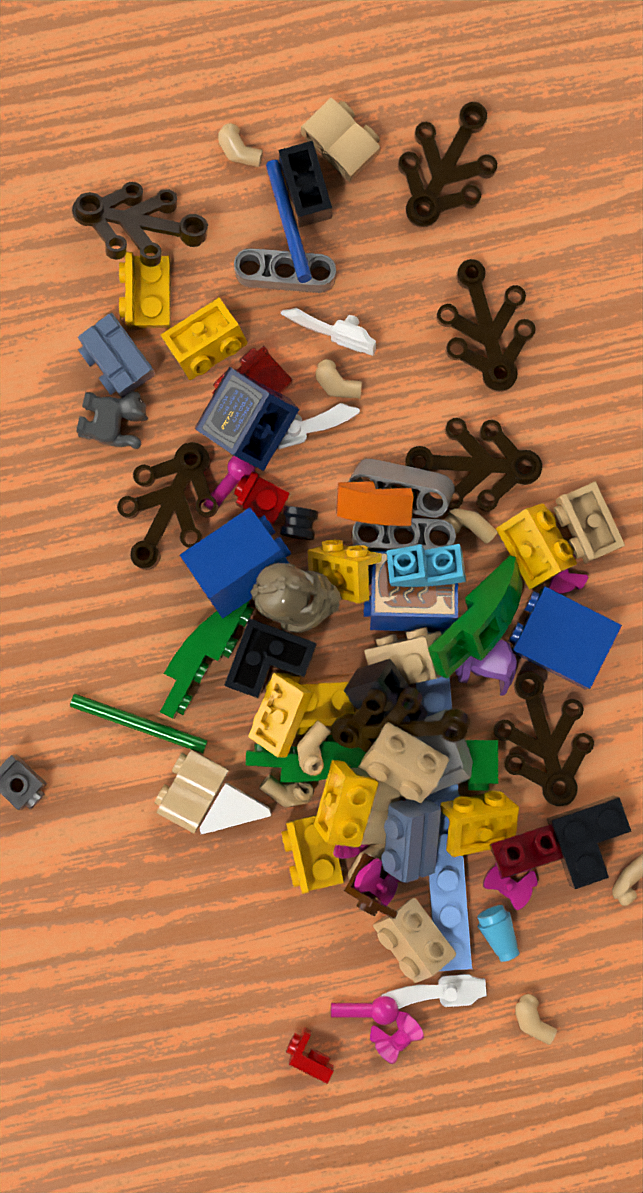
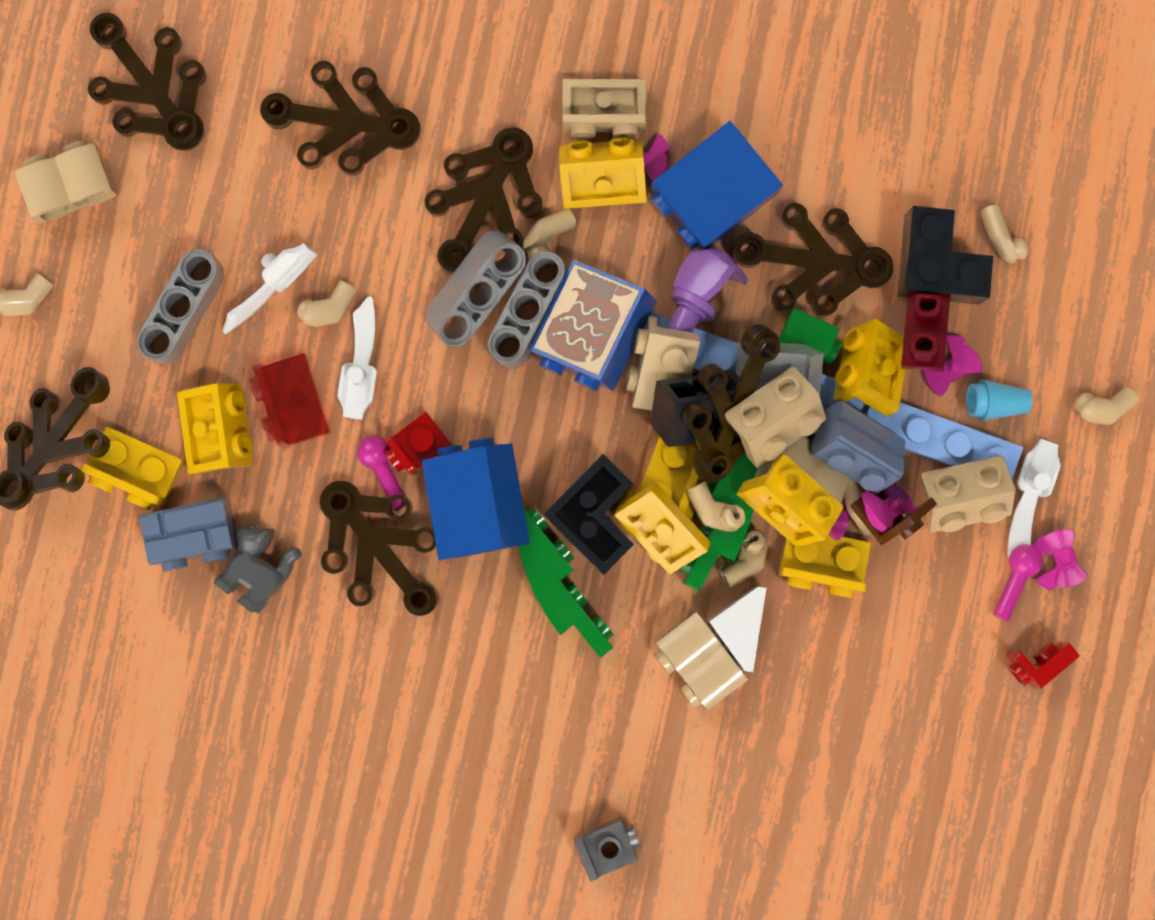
camera: 65 degrees left, 0 degrees up
(138, 723) = (600, 687): green bar -> none
(247, 418) = (324, 419): dark blue slope -> none
(284, 596) = (534, 463): dark tan helmet -> none
(288, 221) = (129, 278): blue bar -> none
(299, 523) = (462, 416): black wheel -> none
(305, 184) = (96, 241): black brick -> none
(344, 567) = (535, 392): yellow bracket -> none
(374, 506) = (477, 331): orange slope -> none
(421, 568) = (574, 300): medium azure slope -> none
(480, 628) = (667, 271): green slope -> none

